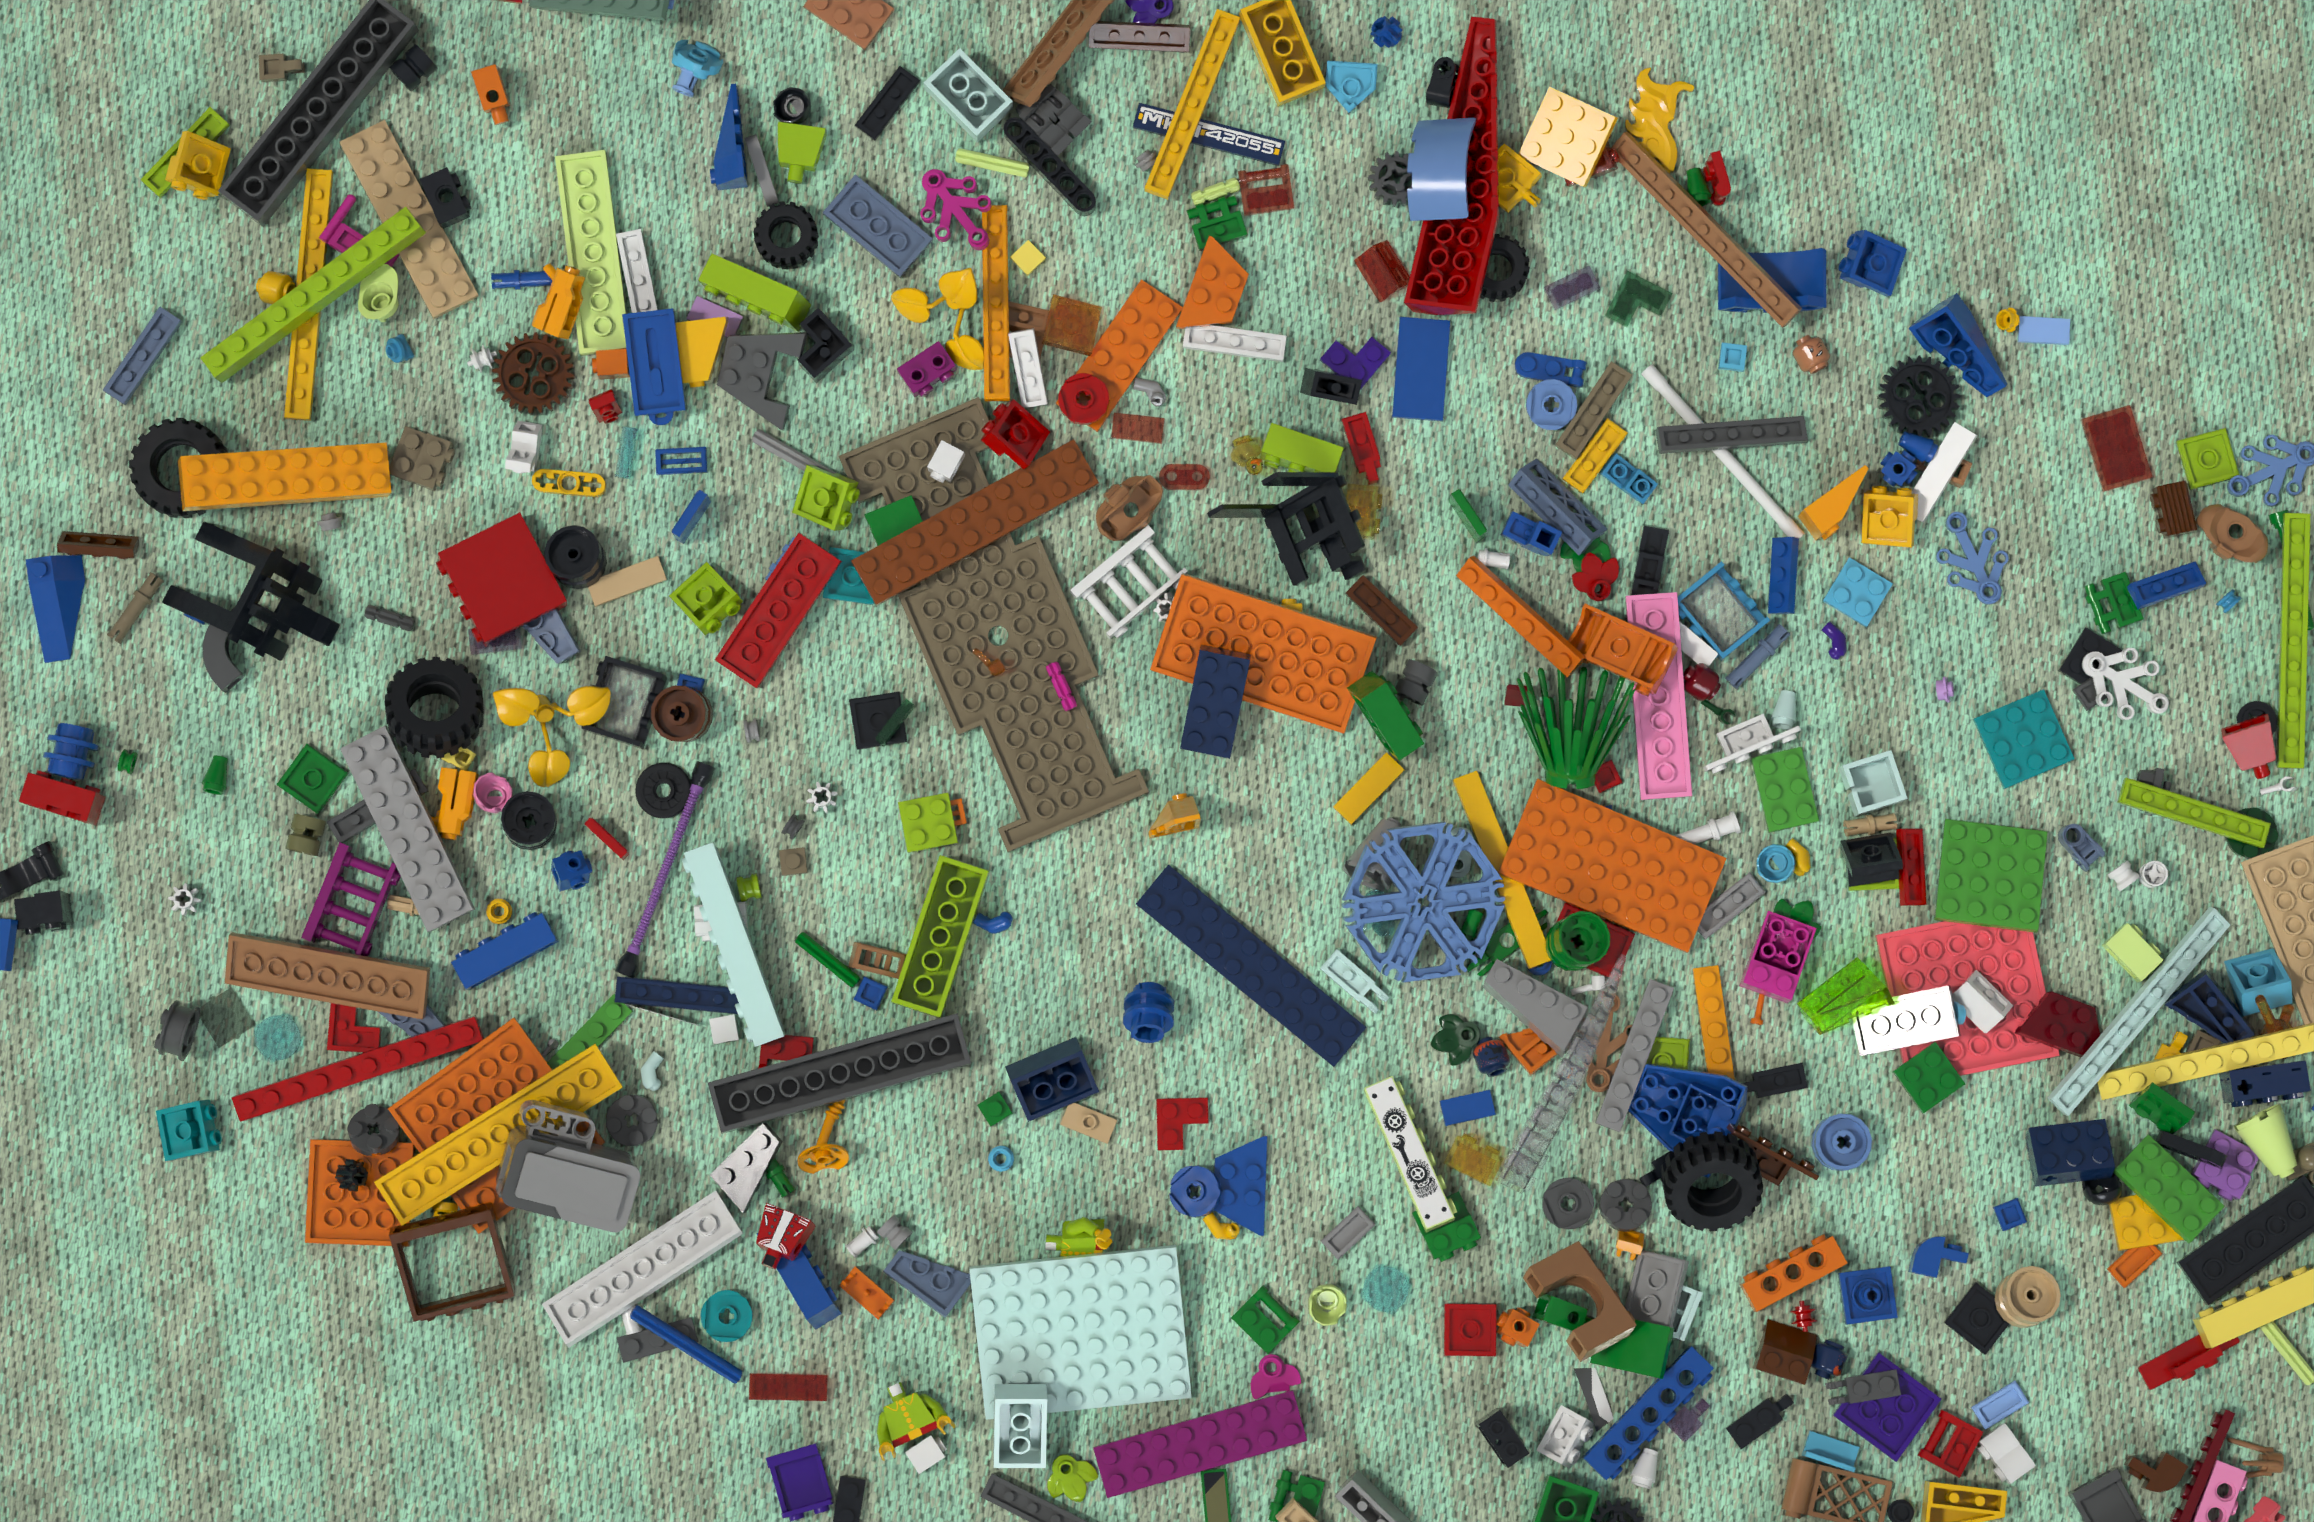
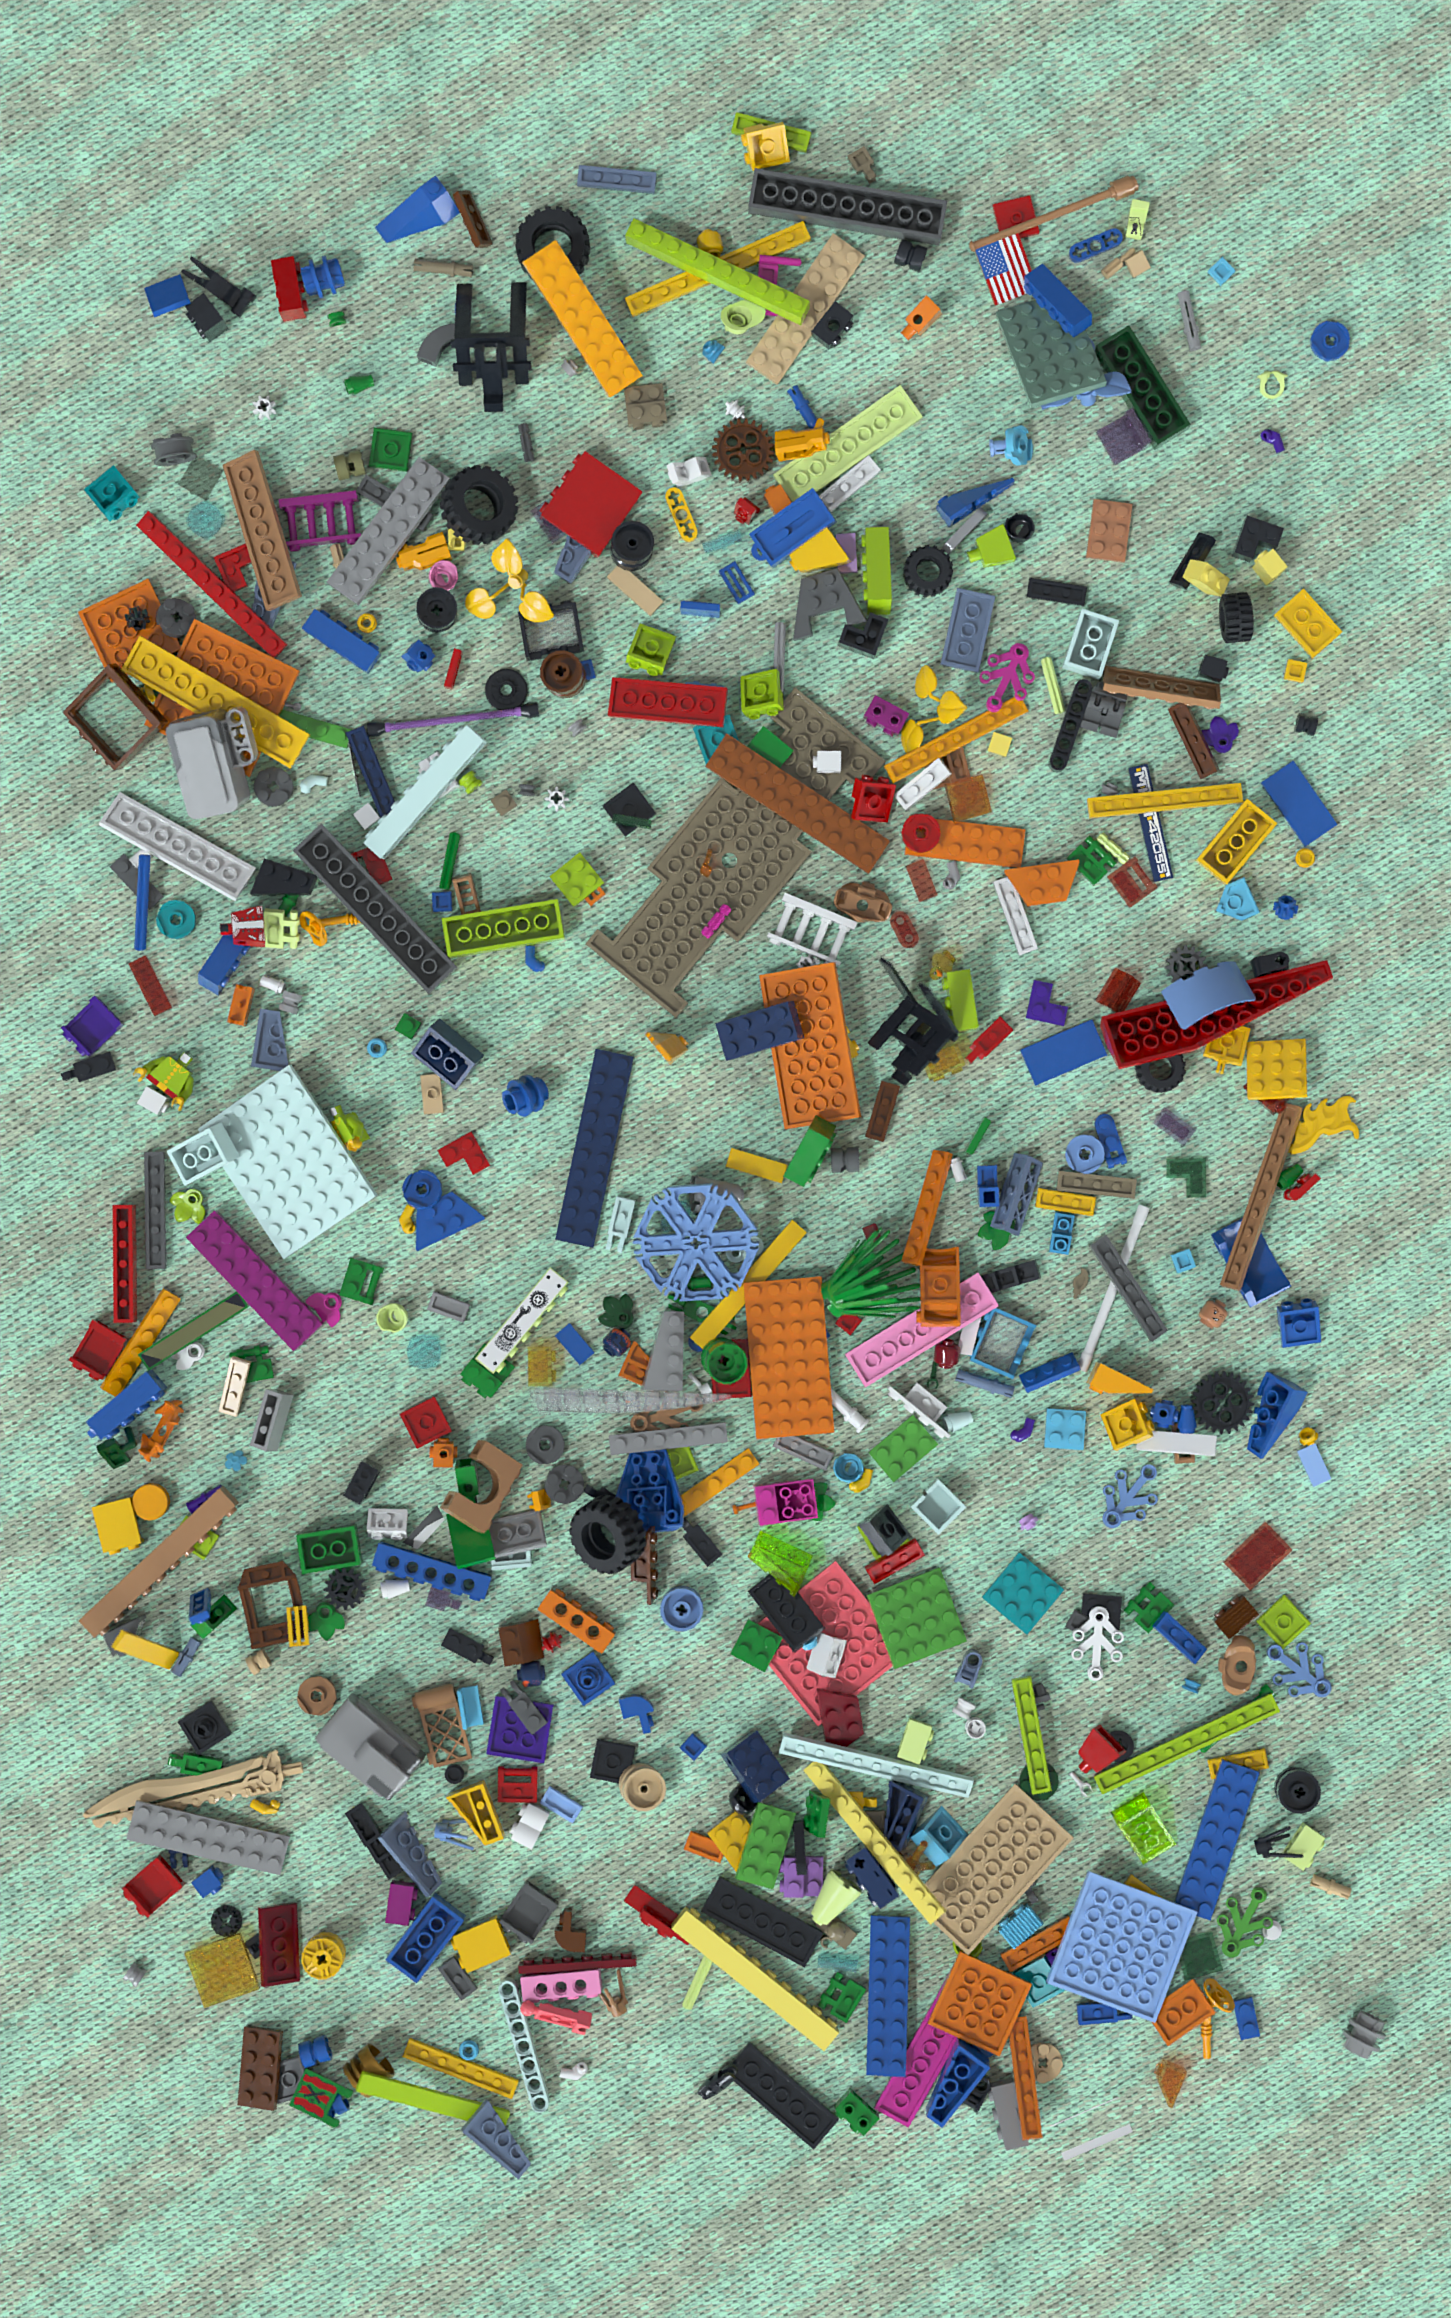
camera: 60 degrees right, 5 degrees up
(794, 1200) = (274, 928): none -> yellowish green plate
(1330, 386) = (1018, 996): black slope -> none
(1595, 573) = (984, 1243): red plate -> none
(1696, 487) = (1080, 1282): none -> dark tan piece
(1870, 824) = (909, 1518): tan pin -> none

